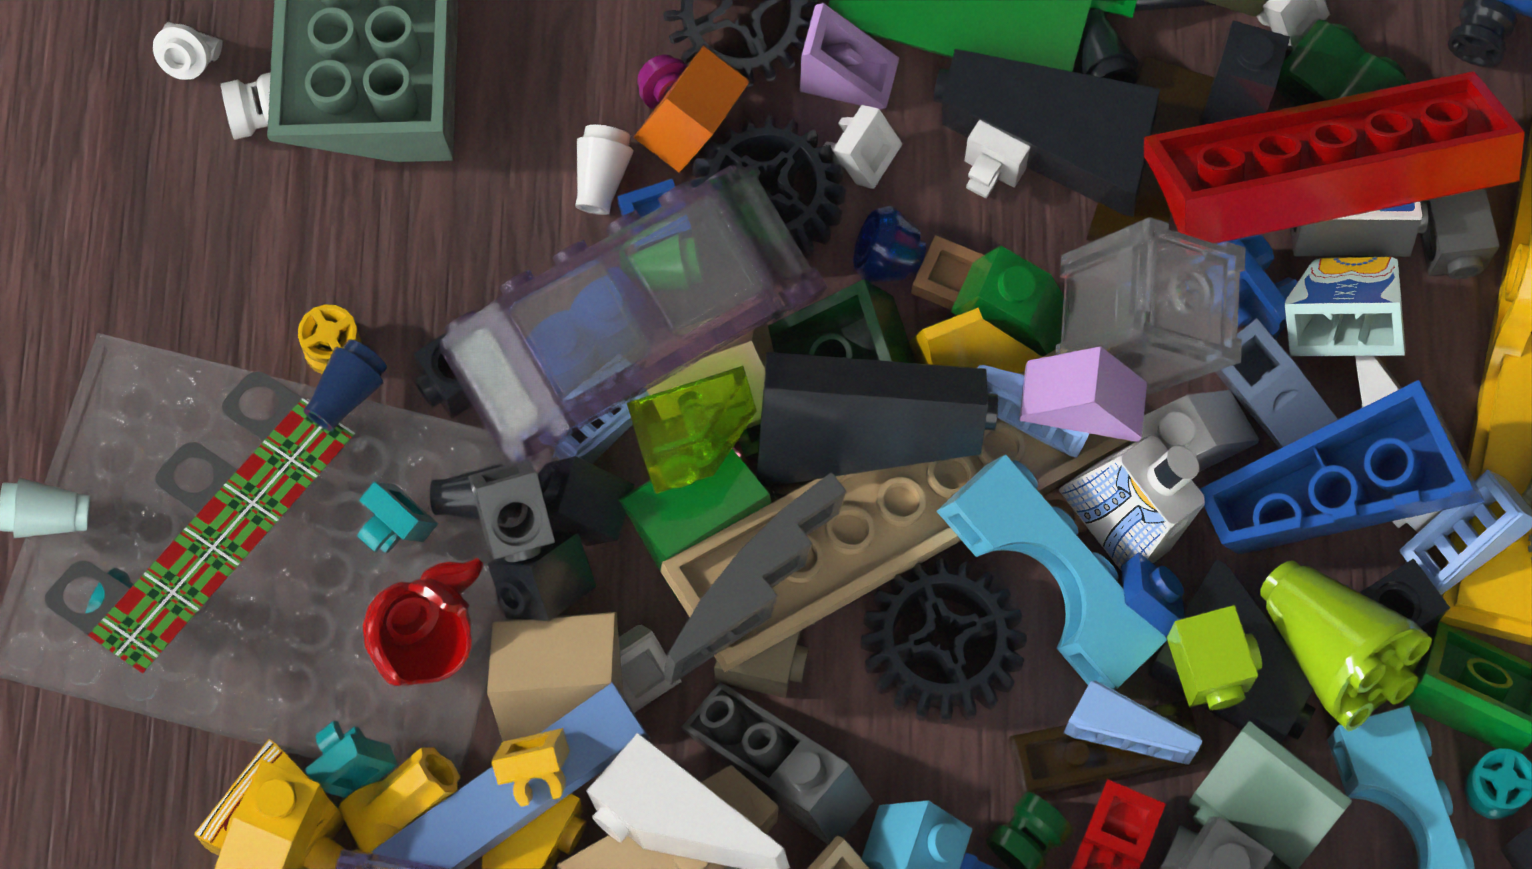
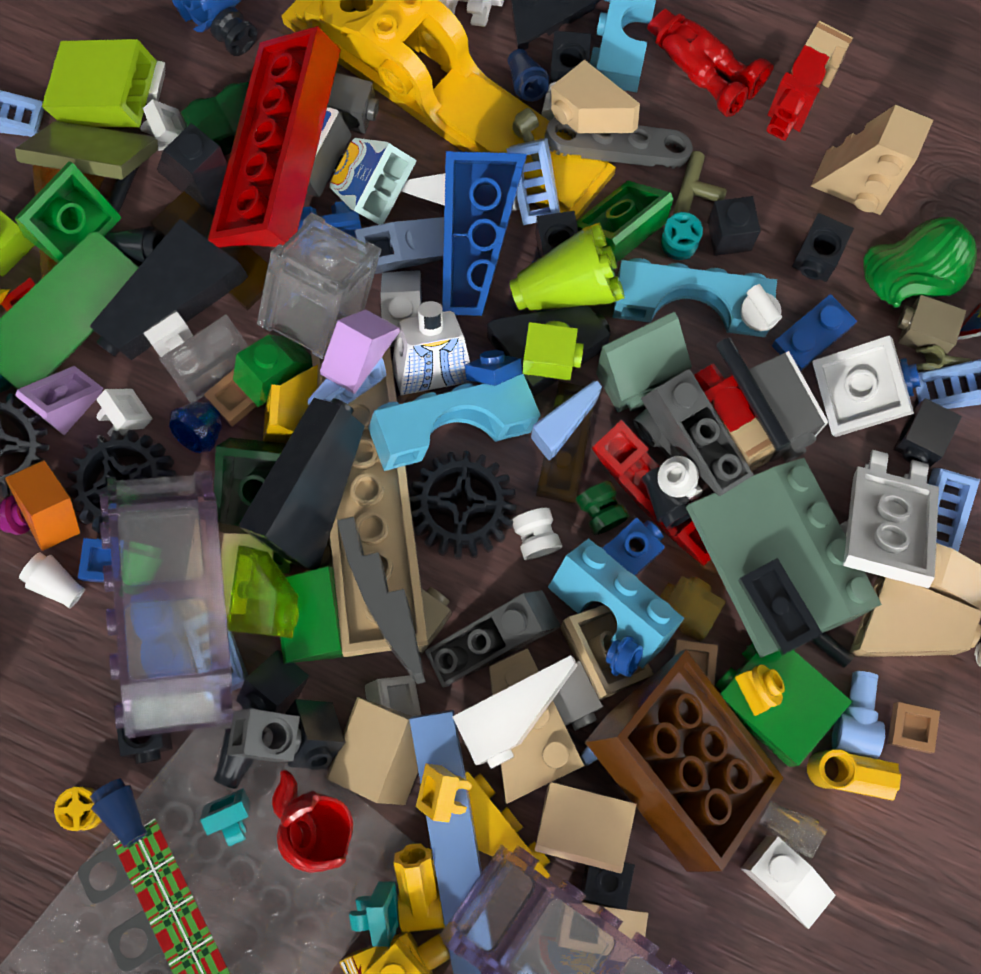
camera: 65 degrees left, 5 degrees up
(949, 759) = (536, 533): none -> white wheel
(984, 212) = (205, 358): none -> clear brick

